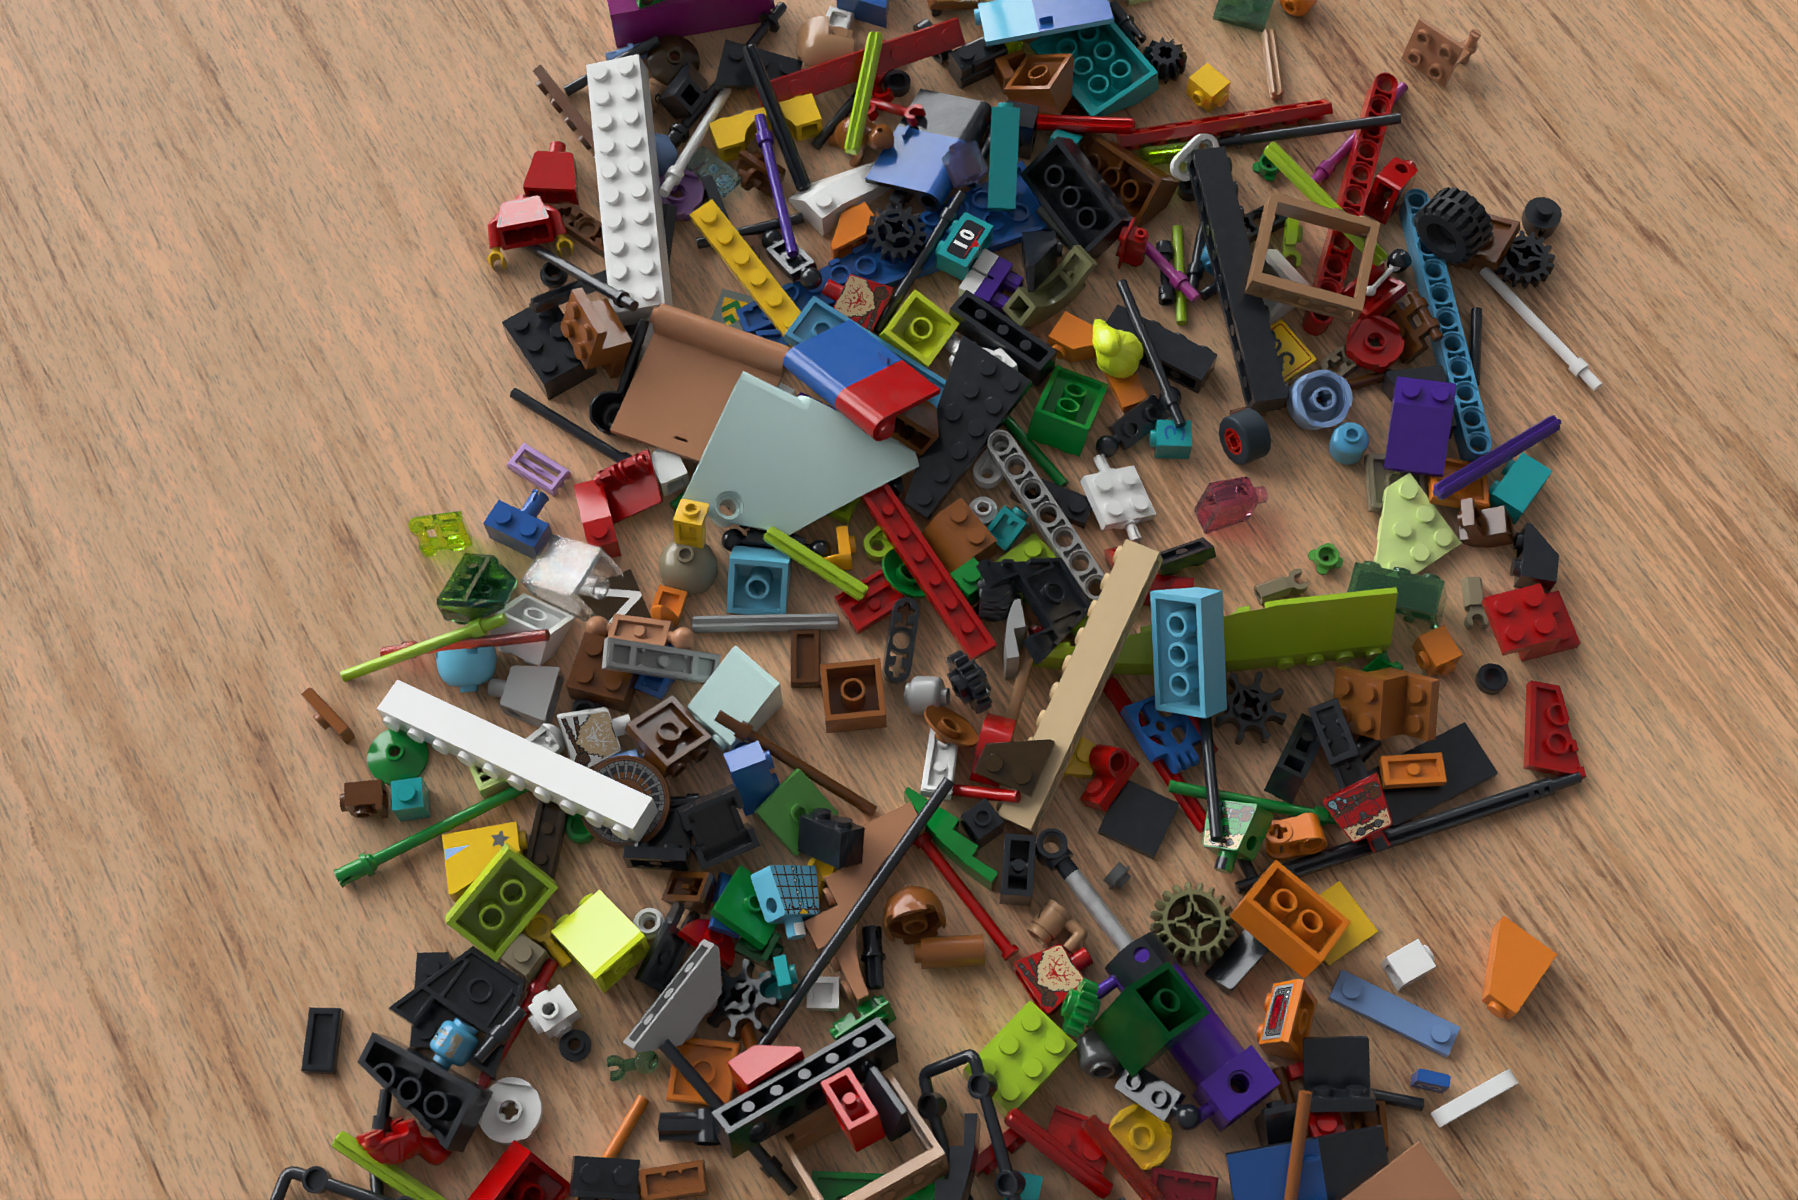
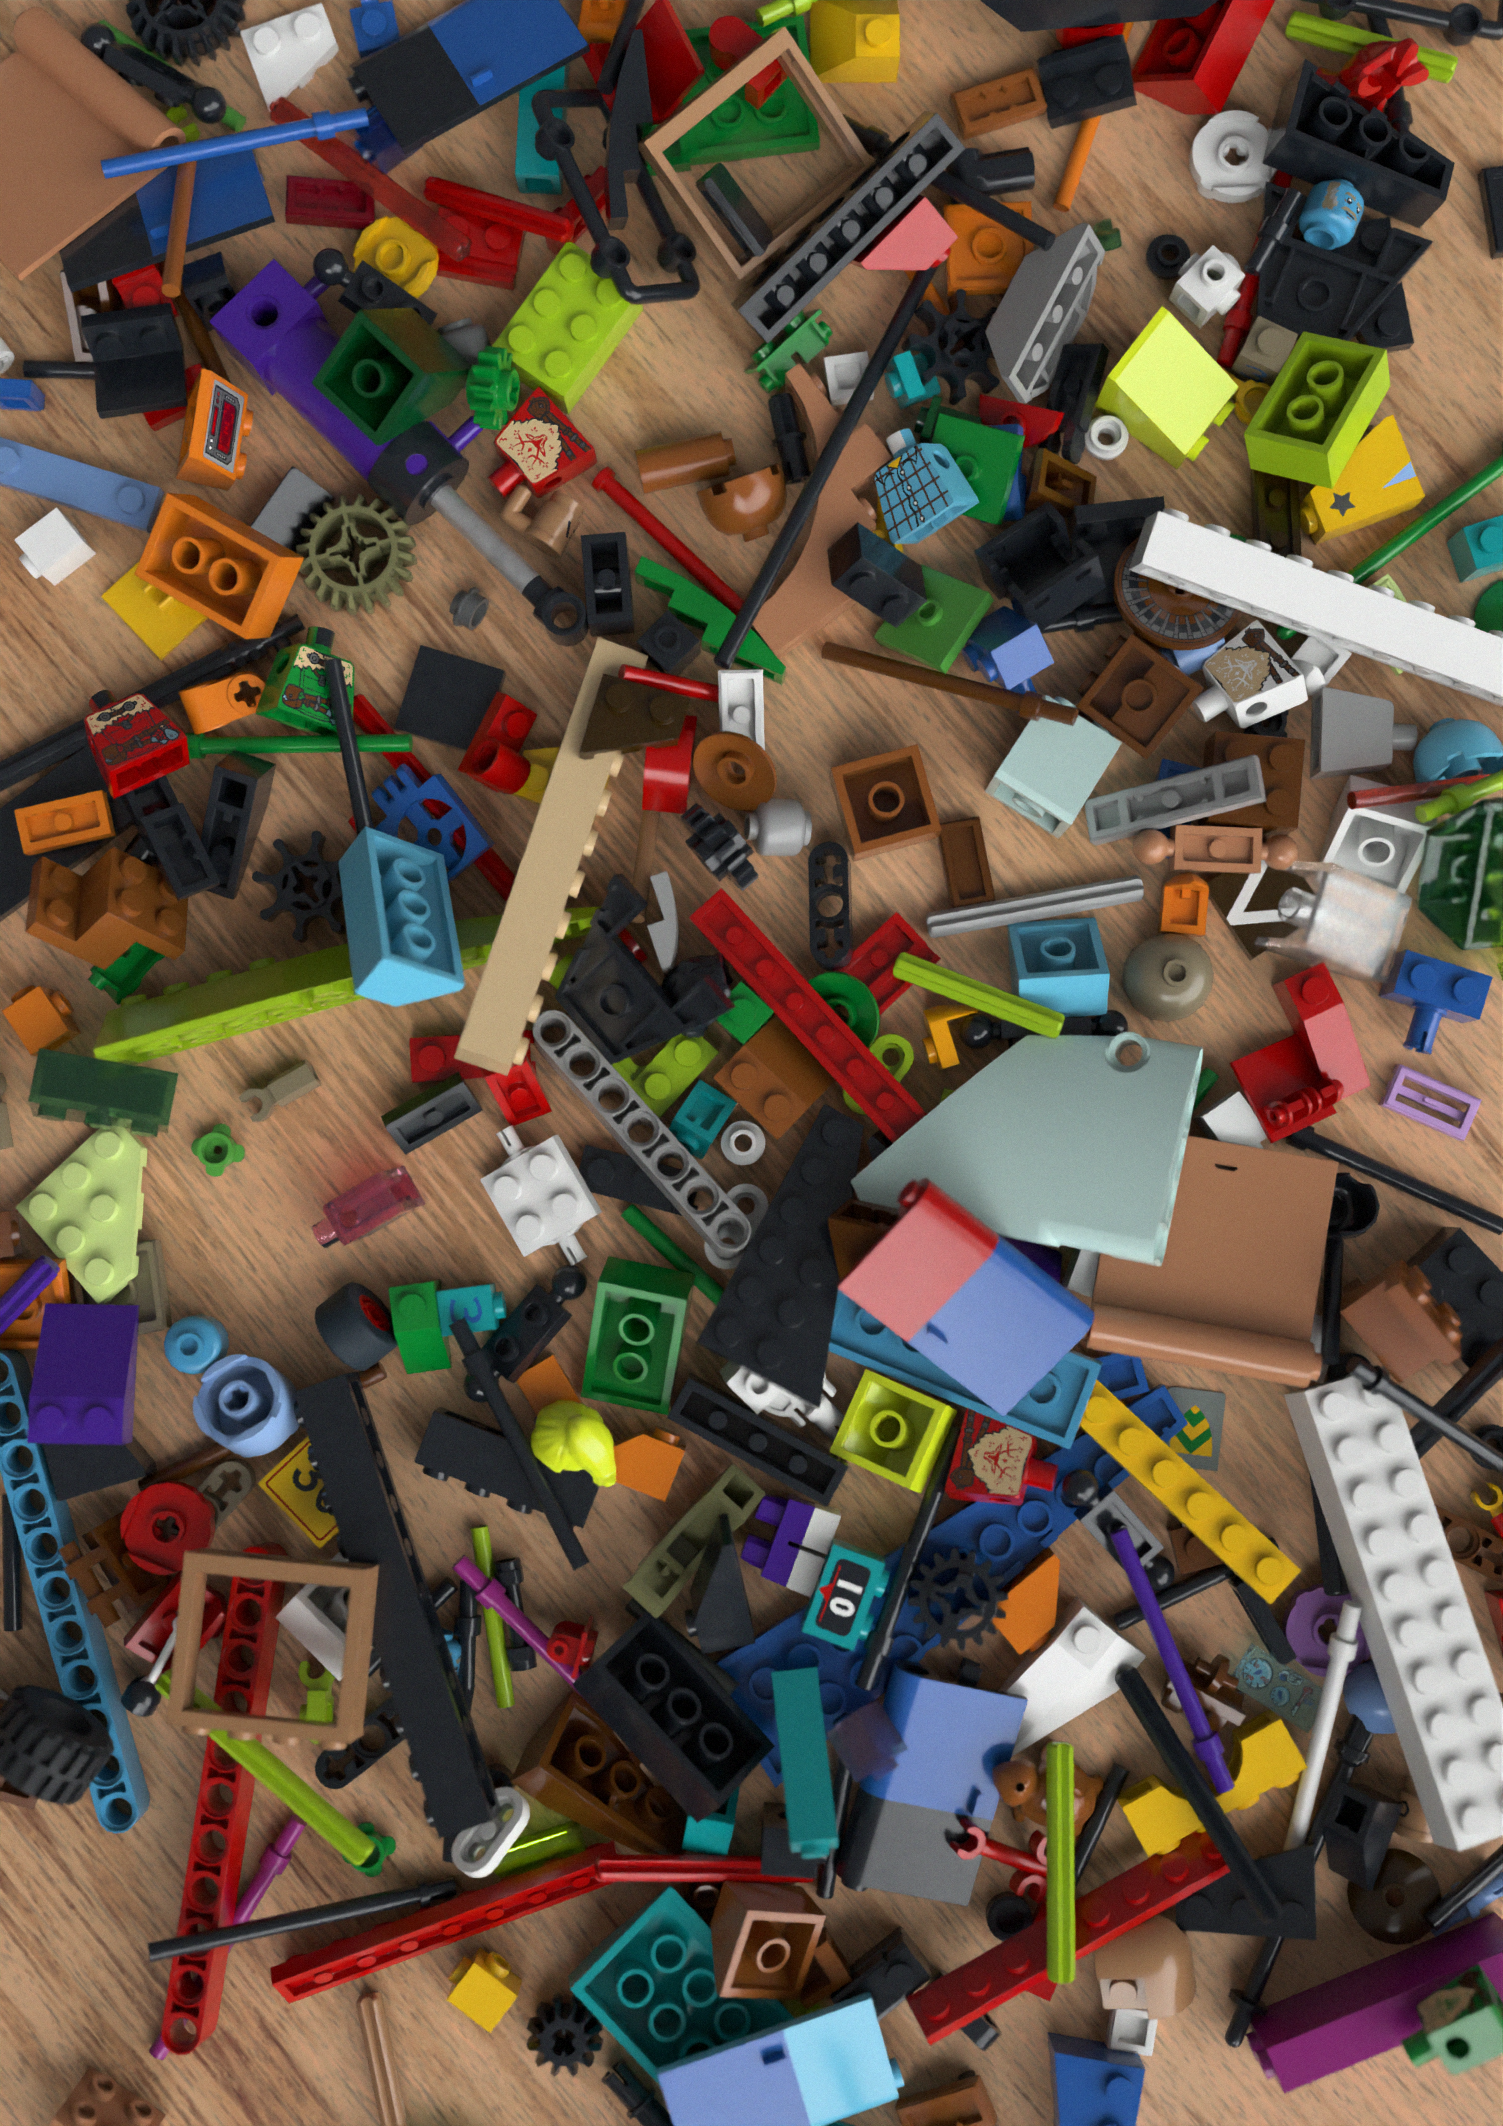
camera: 170 degrees right, 20 degrees up
(690, 523) = (1180, 1018): yellow bracket -> none
(853, 1109) = (777, 187): red brick -> none
(1205, 439) = (418, 1327): none -> green slope
(1395, 177) = (159, 1832): red torso -> none

